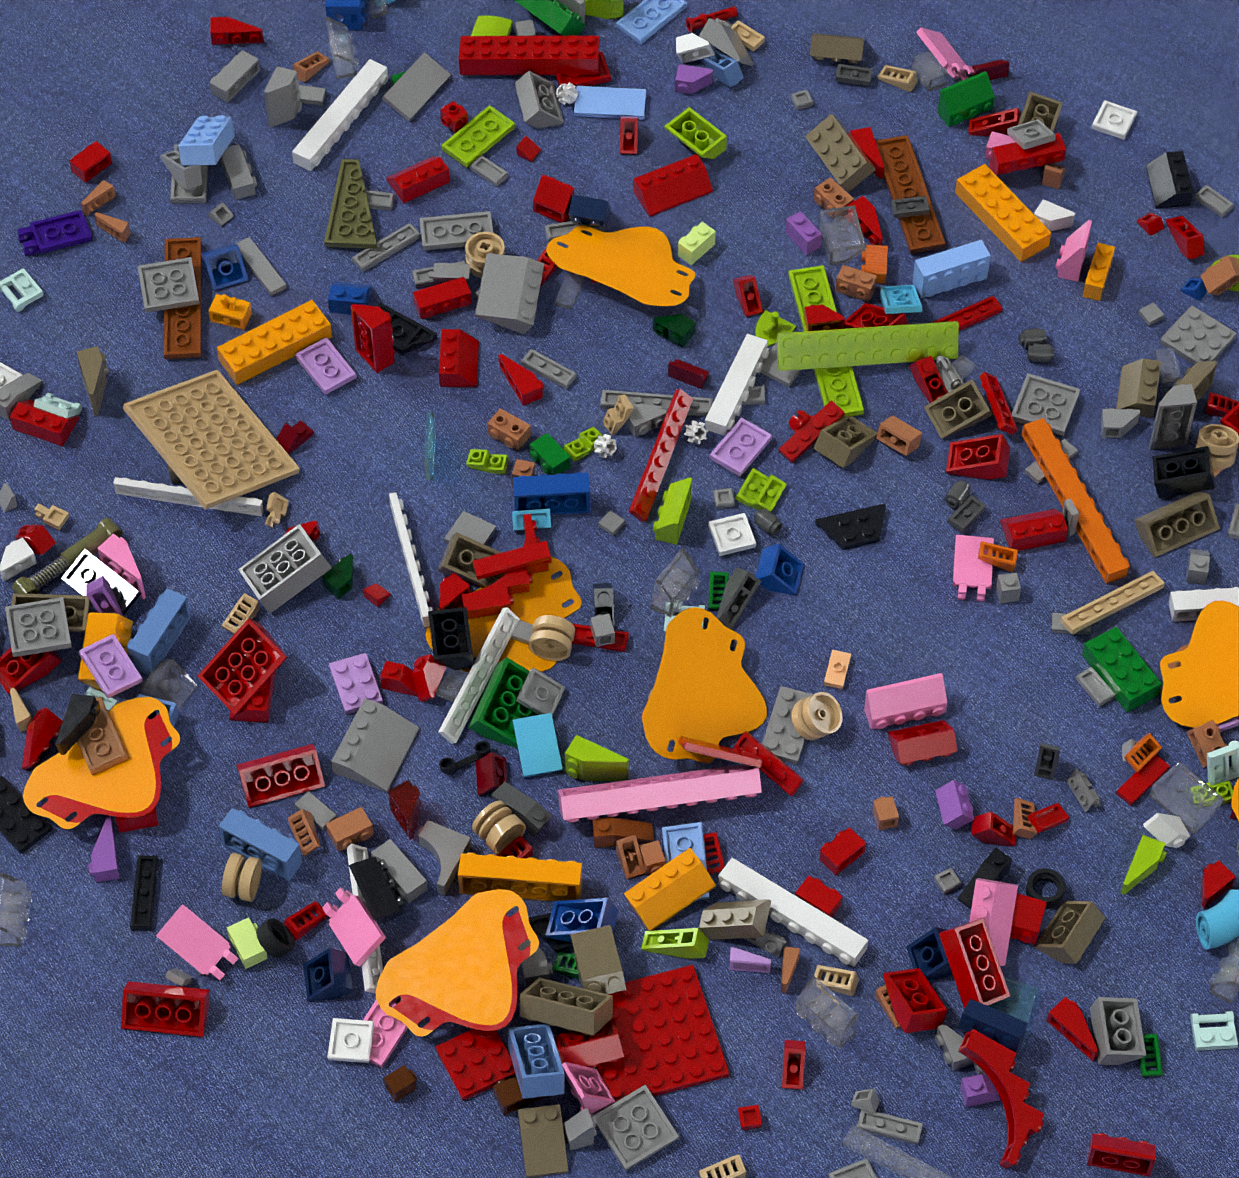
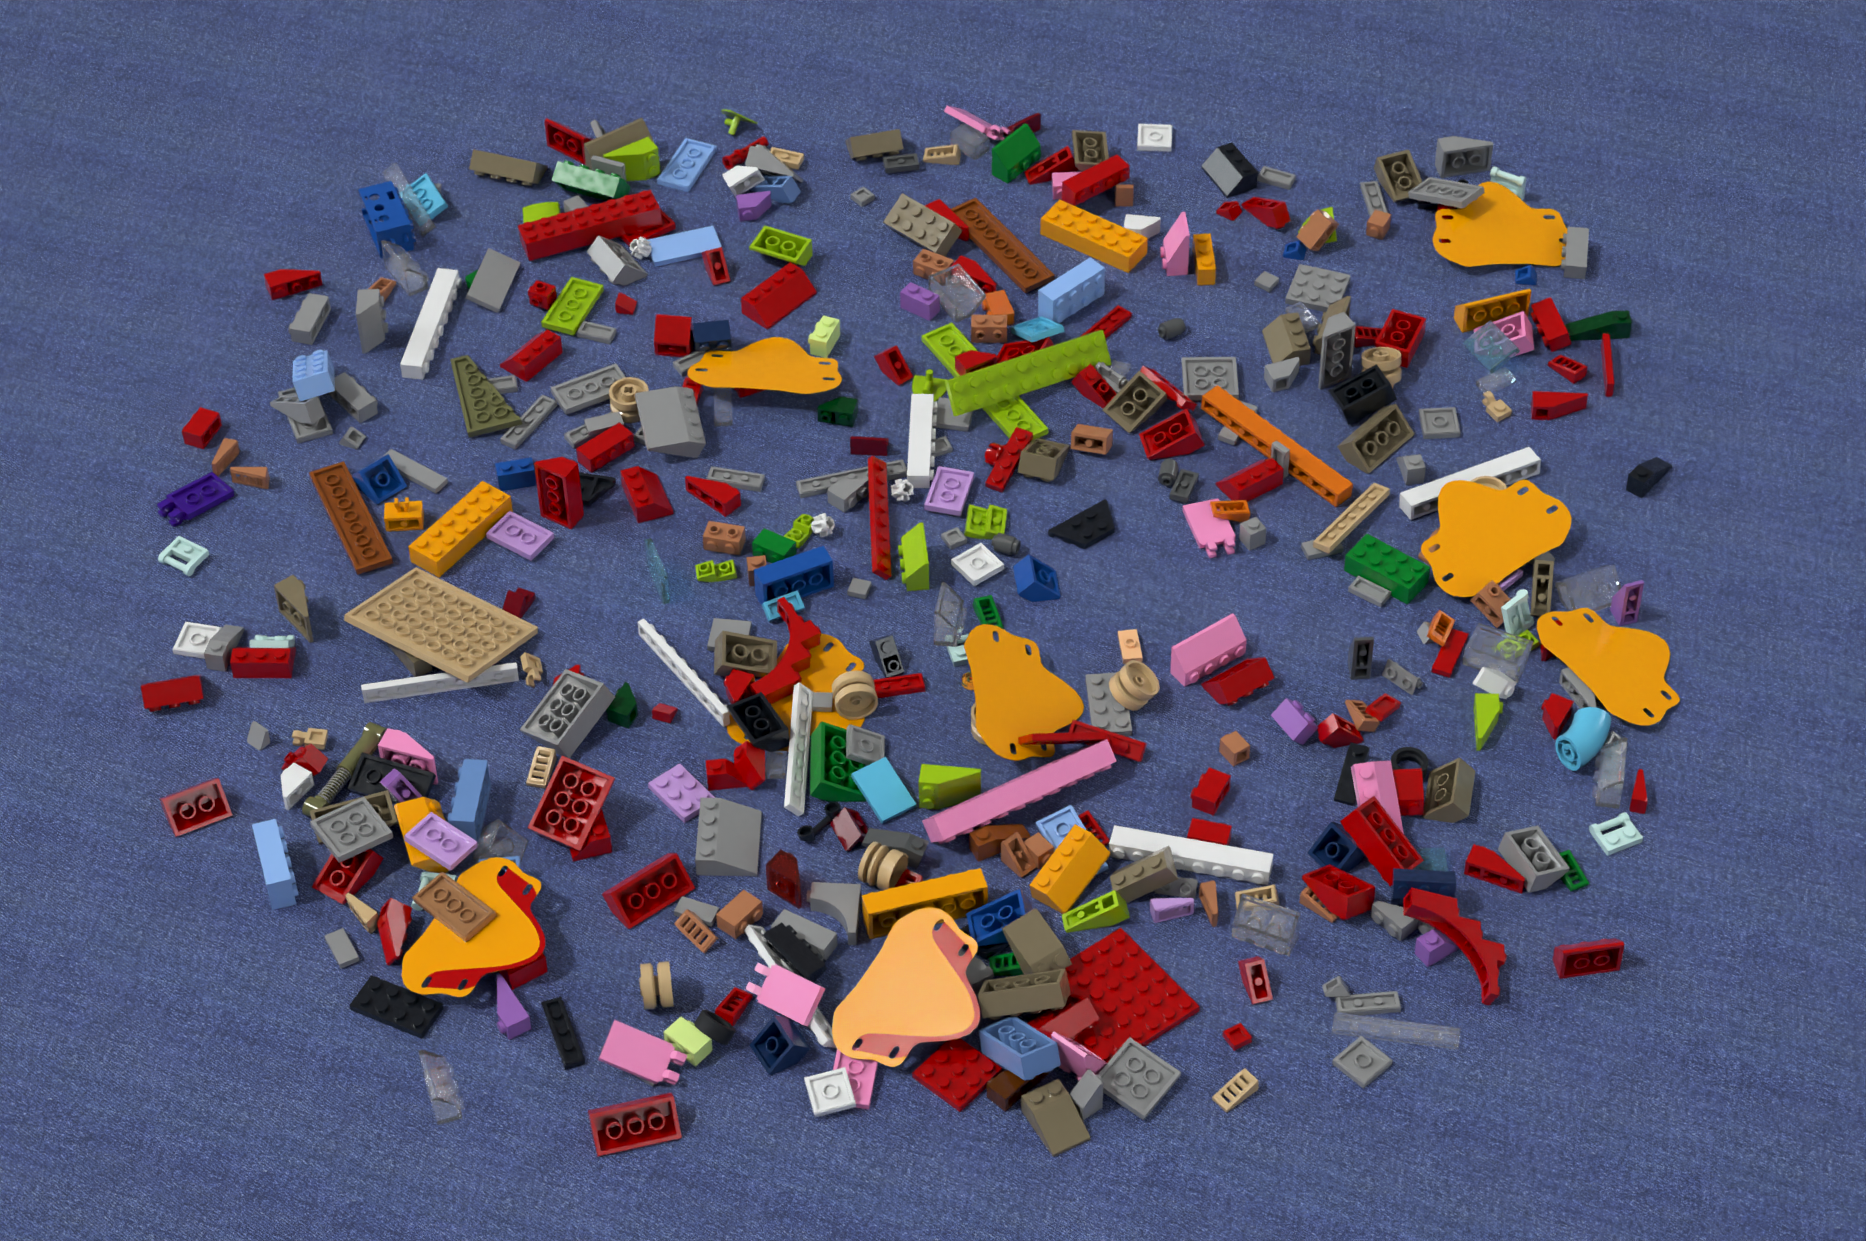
camera: 20 degrees left, 10 degrees down
(77, 720) = (432, 895): black slope -> none
(168, 284) = (333, 508): light grey plate -> none
(179, 977) = (634, 1092): light grey tile -> none
(256, 840) = (651, 945): medium blue brick -> none
(312, 95) = (396, 315): light grey tile -> none
(400, 1083) = (895, 1113): reddish brown brick -> none
(511, 560) = (785, 640): red tile -> none
(602, 630) = (898, 675): light grey brick -> none
(617, 416) = (823, 496): tan slope -> none
(736, 596) = (1009, 607): dark grey slope -> none
(910, 207) = (1008, 252): dark grey plate -> none
(947, 881) = (1317, 787): light grey tile -> none
(1031, 134) = (1092, 161): light grey tile -> none
(1040, 353) = (1184, 338): dark grey brick -> none

